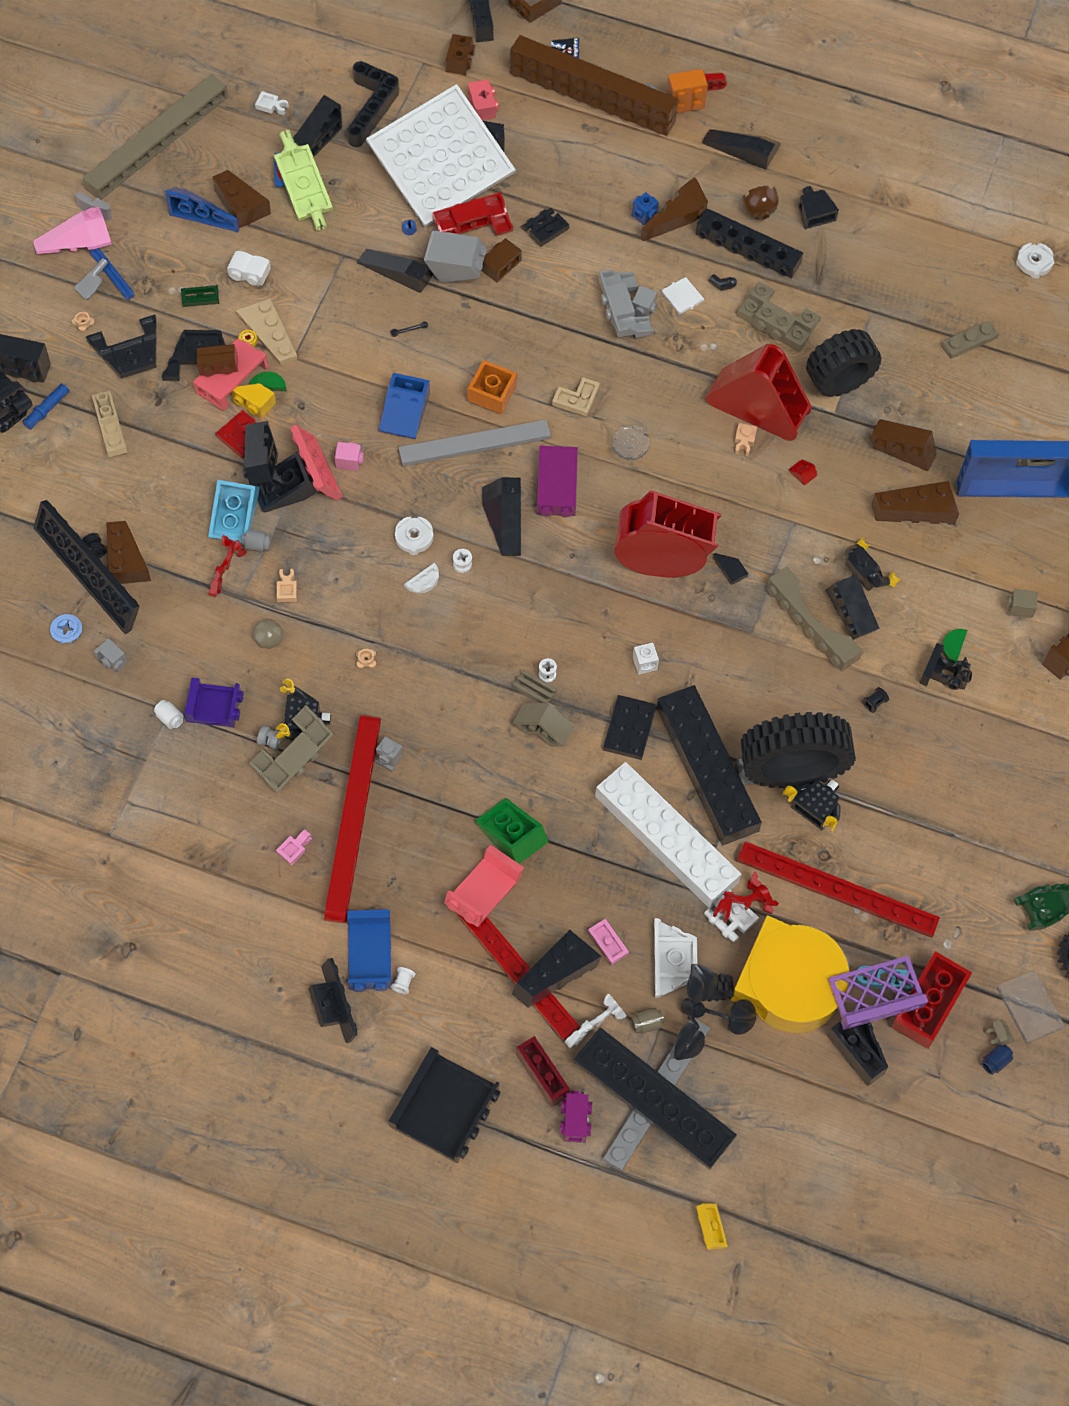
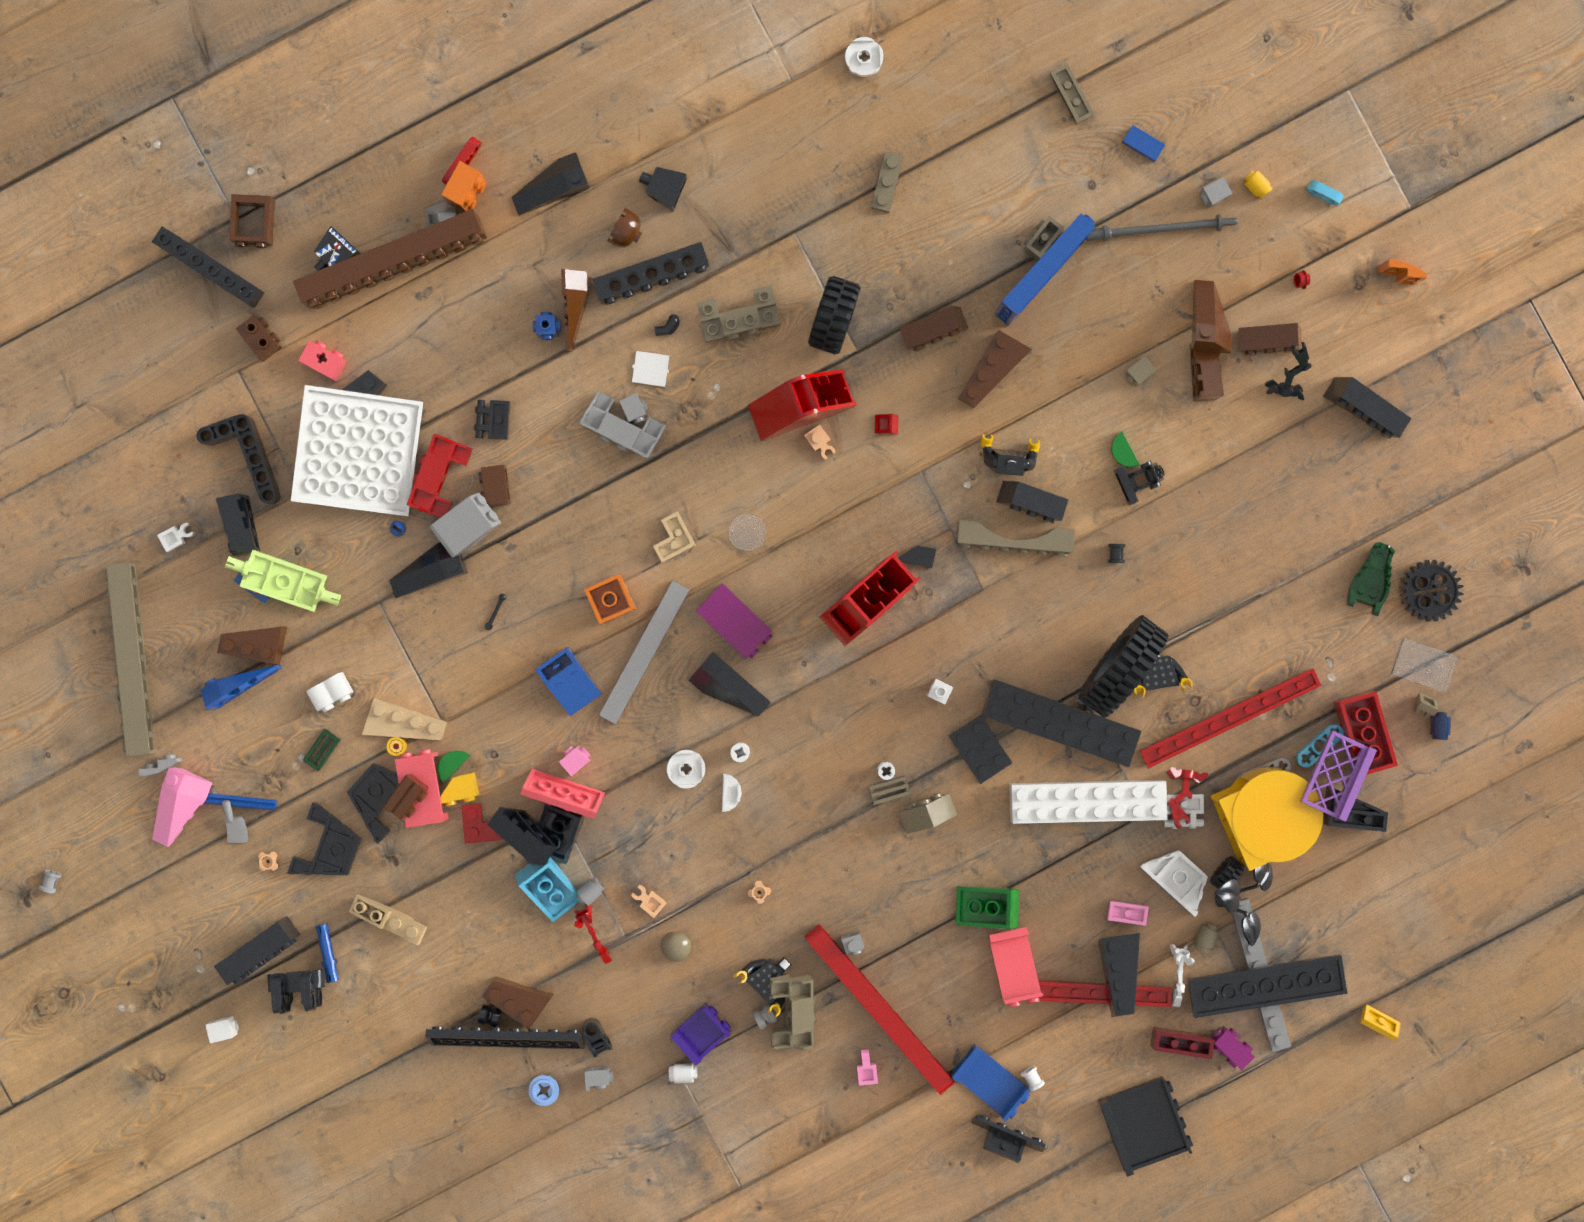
camera: 45 degrees left, 25 degrees up
(140, 633) = (597, 1040): none -> black piece

